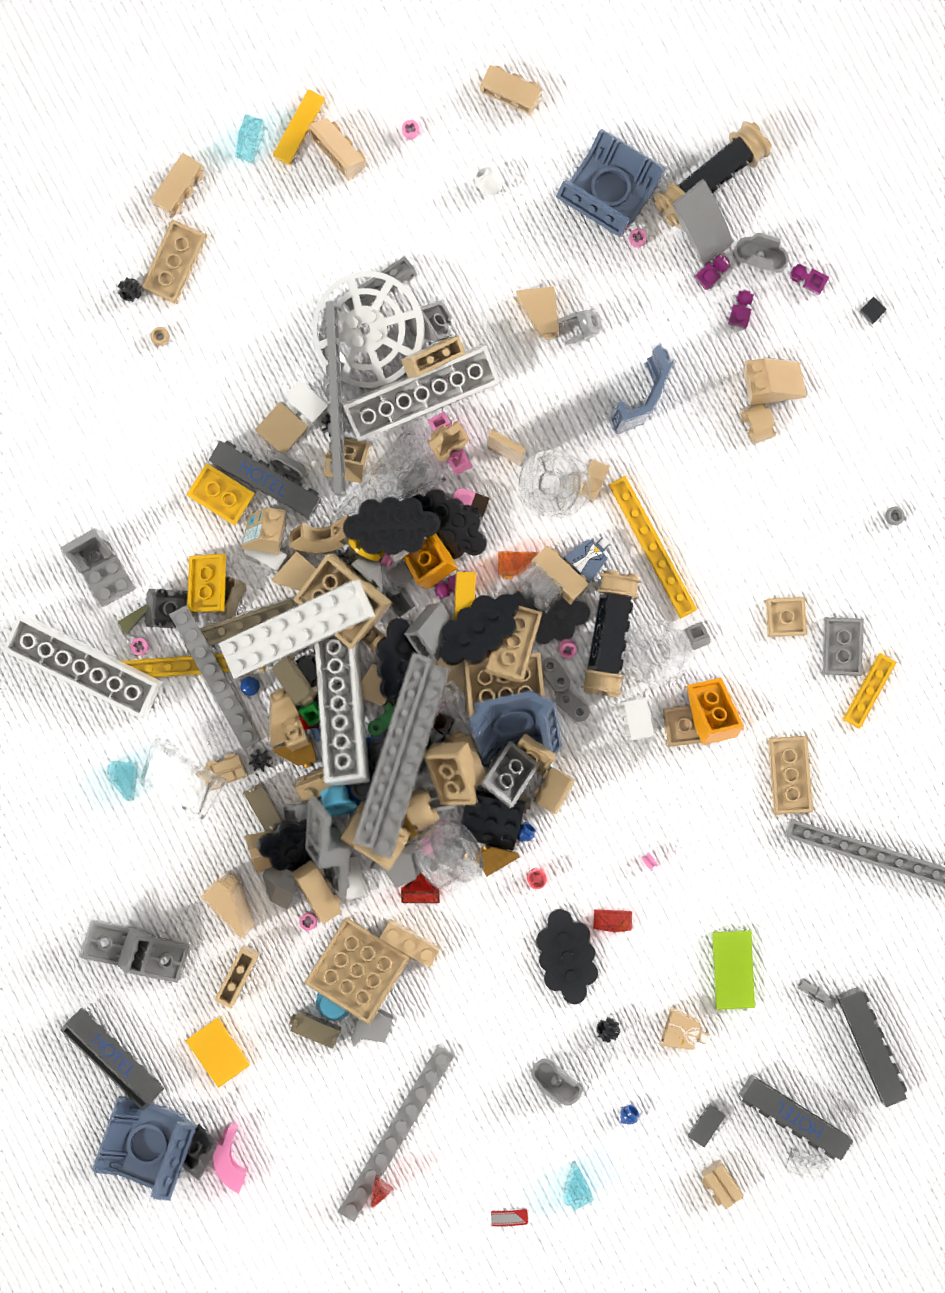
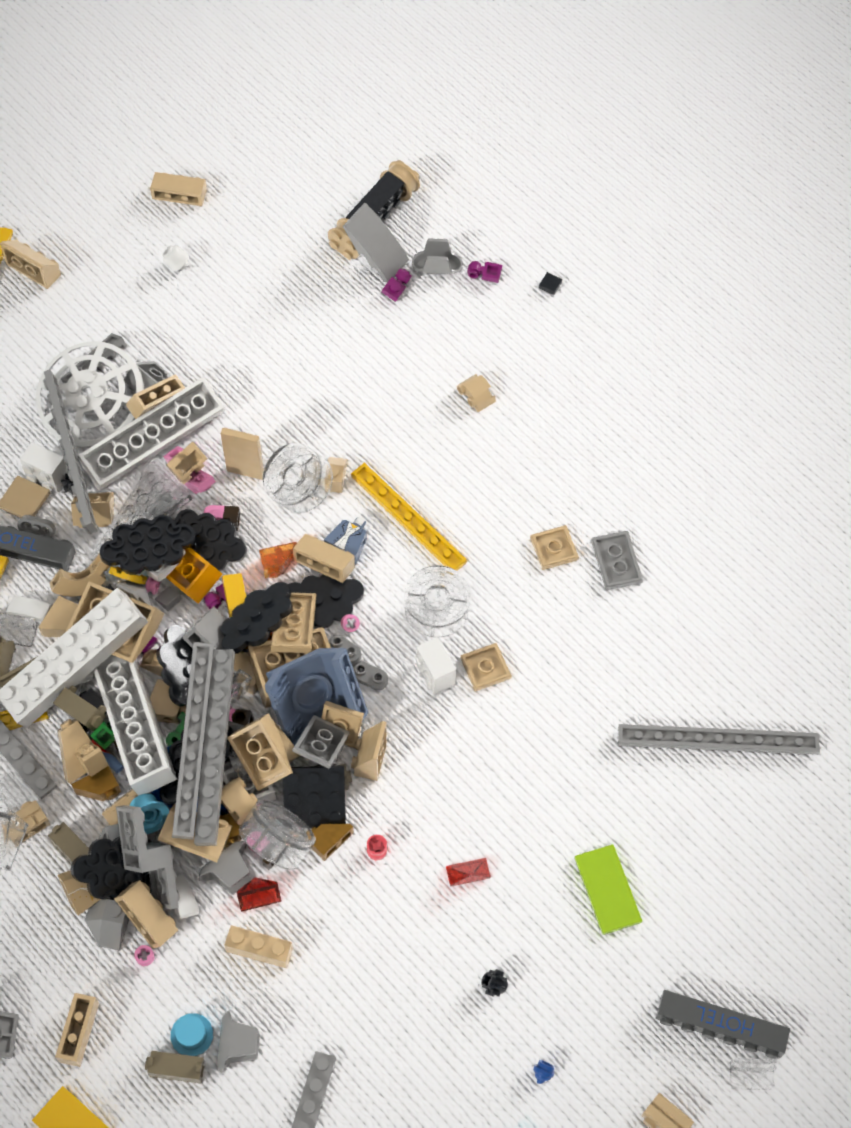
camera: 15 degrees left, 25 degrees down
(230, 903) = (47, 938): tan slope -> none
(250, 686) = (36, 735): blue plate -> none
(262, 755) = (57, 797): black gear -> none
(265, 530) = (24, 585): tan slope -> none
(357, 970) = (208, 987): tan tile -> none
(400, 600) = (173, 616): dark grey bracket -> none
(412, 135) = (92, 234): bright pink bush -> none
(526, 832) = (353, 806): blue plate -> none
(541, 310) = (247, 346): tan slope -> none
(541, 588) = (308, 568): clear brick -> none
(566, 1093) = (441, 1045): light grey piece -> none
(567, 956) = (430, 921): black plate -> none
(587, 327) = (298, 346): light grey piece -> none
(610, 632) = (385, 562): black brick -> none
(612, 183) = (288, 235): sand blue panel -> none
(634, 233) = (322, 279): bright pink bush -> none
(649, 861) = (488, 801): bright pink bush -> none
(659, 370) = (356, 400): sand blue panel -> none
(682, 1031) = (574, 963): tan torso -> none
(697, 636) = (477, 584): light grey slope -> none
(706, 1125) = (631, 1061): dark grey tile -> none
(713, 711) = (510, 644): light orange slope -> none
(739, 313) = (432, 312): magenta plate -> none
(773, 381) = (477, 354): tan slope -> none
(790, 775) = (604, 687): tan tile -> none
(816, 993) = (701, 890): light grey pin -> none
(869, 690) = (655, 593): yellow tile -> none
(871, 1047) = (776, 928): dark grey brick -> none
(900, 516) = (626, 434): light grey plate -> none

